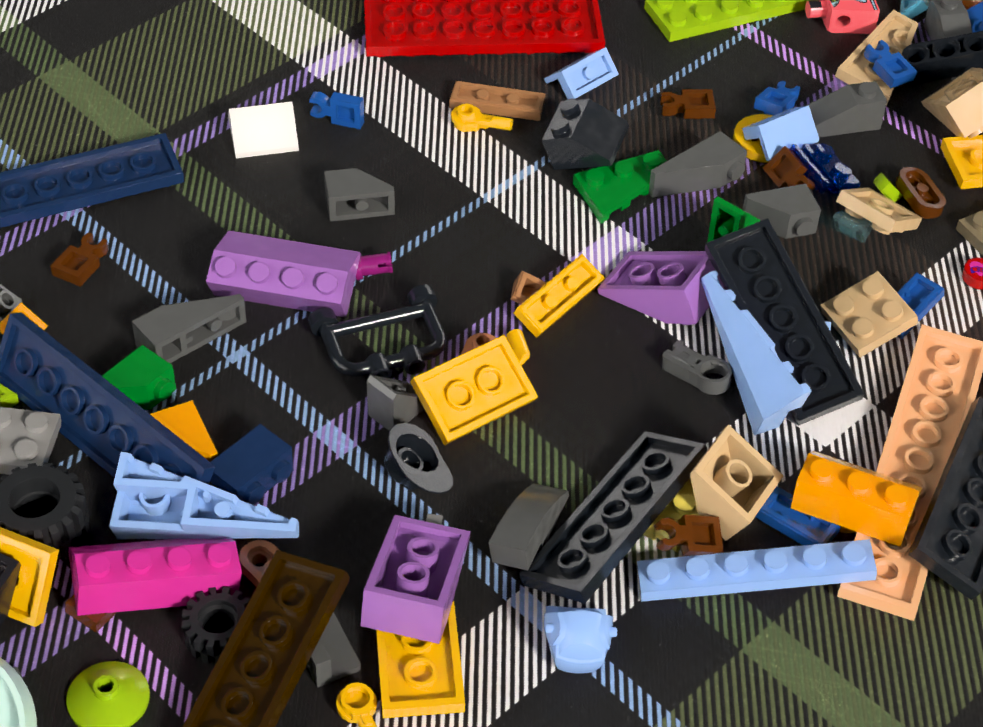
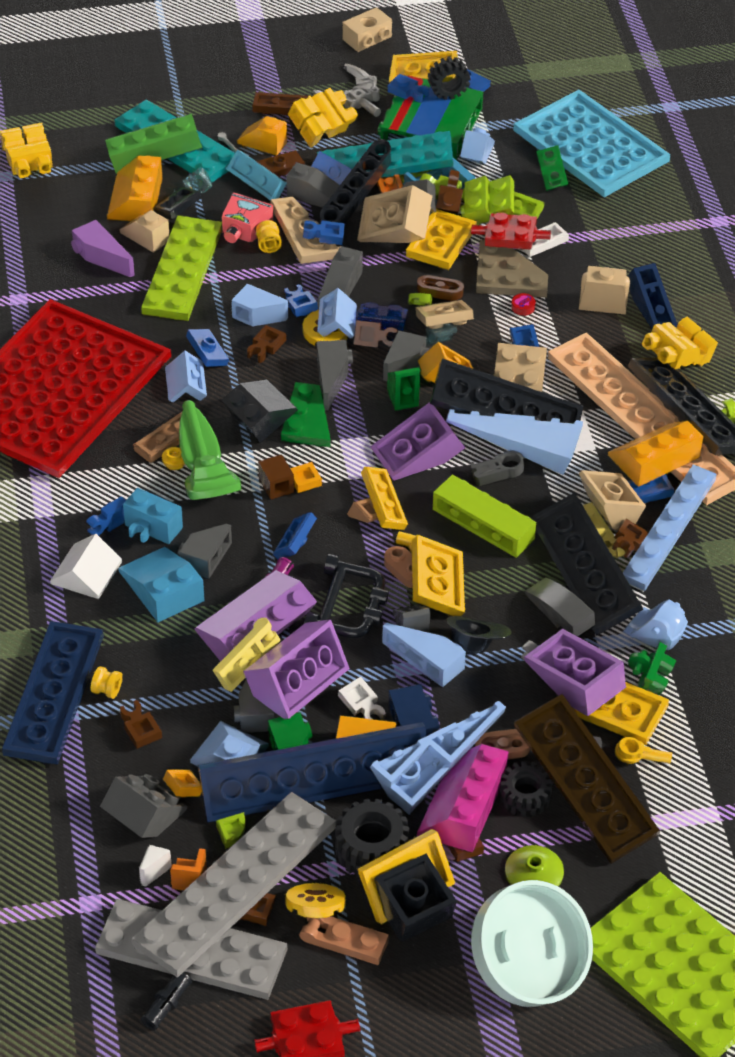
camera: 55 degrees left, 0 degrees up
(98, 342) = (227, 743): none -> light blue slope
(117, 209) = (106, 682): none -> yellow wheel
(210, 281) = (245, 653): none -> light yellow plate
(228, 333) = (298, 668): none -> medium lavender slope
(243, 412) = (361, 698): none -> white plate
(282, 189) = (164, 583): none -> dark azure slope
(356, 444) = (426, 651): none -> light blue slope
(362, 135) = (152, 516): none -> dark azure brick
(436, 252) = (295, 536): none -> blue plate
(460, 144) = (202, 456): none -> bright green piece
(506, 197) = (276, 476): none -> reddish brown brick
(522, 660) = (649, 666): none -> green hips
(529, 220) = (306, 477): none -> light orange plate
(610, 390) = (484, 515): none -> lime brick
(639, 67) = (207, 347): none -> blue plate
(732, 73) = (258, 307): none -> light blue slope
(809, 251) = (431, 359): none -> light orange slope
(841, 34) = (268, 236): none -> yellow wheel

